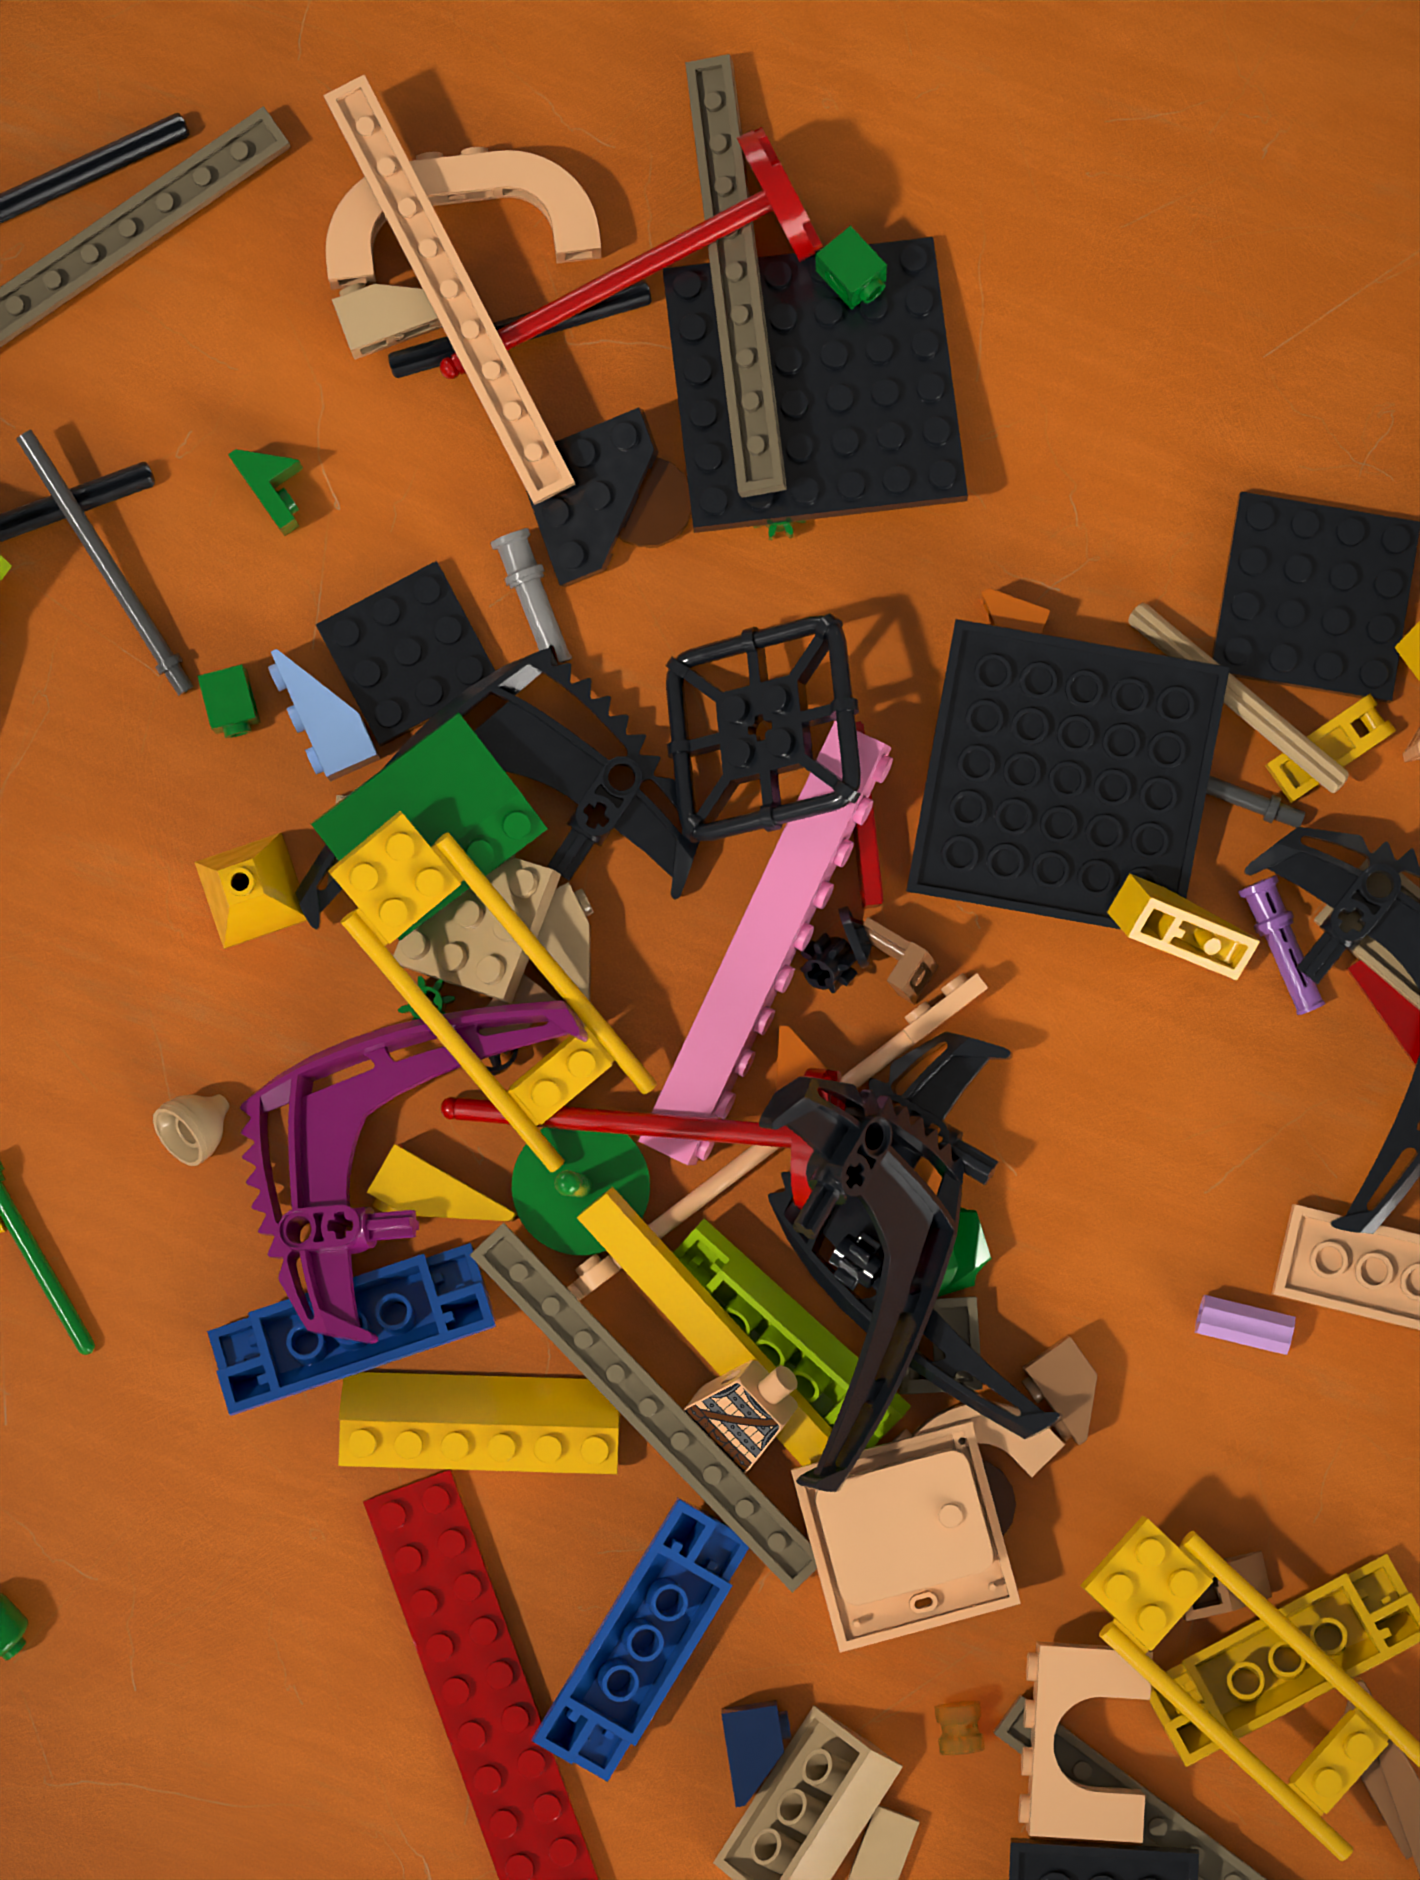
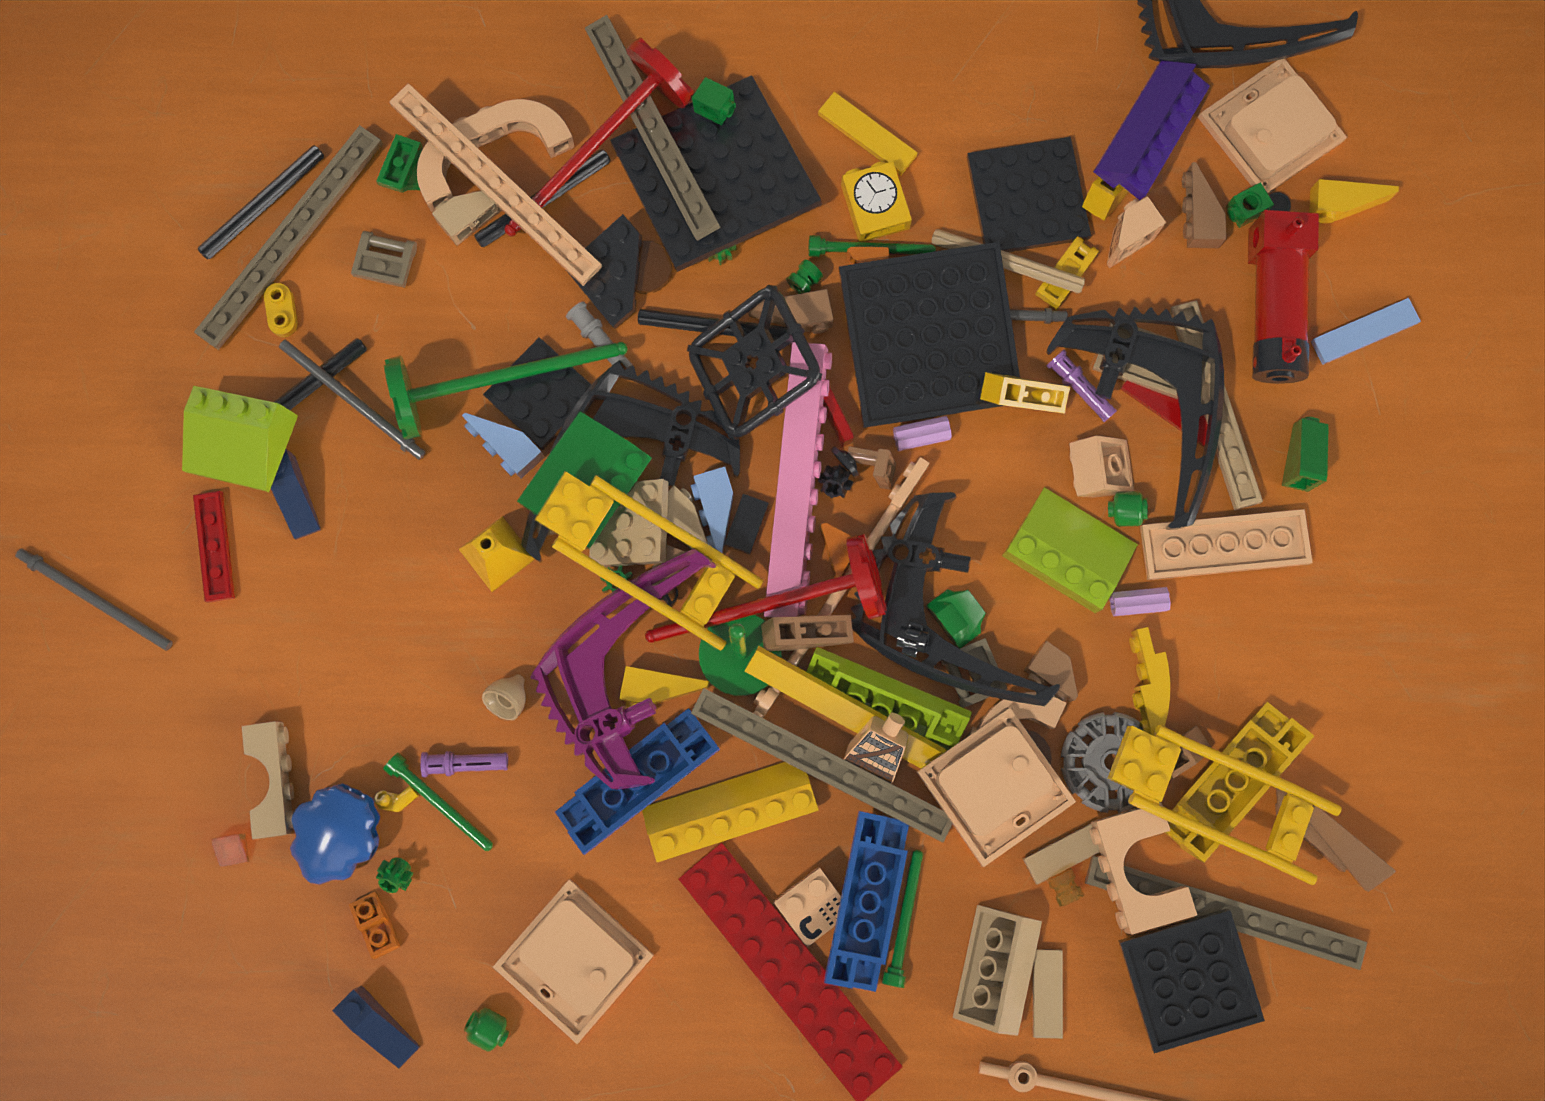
camera: 25 degrees left, 5 degrees down
(37, 370) = (280, 308): none -> yellow plate
(71, 1199) = (450, 763): none -> medium lavender pin
(167, 1566) = (577, 957): none -> light nougat piece
(190, 594) = (405, 397): none -> green piece
(222, 356) = (380, 266): none -> dark tan plate
(229, 701) = (448, 452): green brick -> none
(263, 475) = (427, 321): green slope -> none
(309, 197) = (400, 165): none -> green slope
(552, 1616) = (810, 906): none -> light nougat slope
(629, 926) = (716, 499): none -> light blue slope
(647, 1765) = (895, 974): none -> green piece
(664, 980) = (746, 524): none -> black tile
(696, 1191) = (806, 632): none -> medium nougat slope
(705, 628) = (697, 323): none -> black axle
(753, 1744) = (952, 939): dark blue slope -> none
(881, 668) = (809, 309): none -> medium nougat slope
(898, 611) = (804, 277): none -> green wheel
(911, 1221) = (938, 605): black piece -> none
(941, 565) = (820, 246): none -> green piece
(972, 1676) = (1061, 855): none -> tan tile
(996, 932) = (922, 433): none -> lavender axle
(1059, 522) = (876, 201): none -> yellow brick
(1080, 1543) = (1093, 761): none -> light grey plate
(1088, 400) = (867, 133): none -> yellow tile
(1166, 1203) = (1070, 551): none -> lime slope
(1210, 1481) = (1153, 669): none -> yellow slope
(1265, 1088) = (1101, 466): none -> light nougat slope
(1282, 1170) = (1128, 508): none -> green head

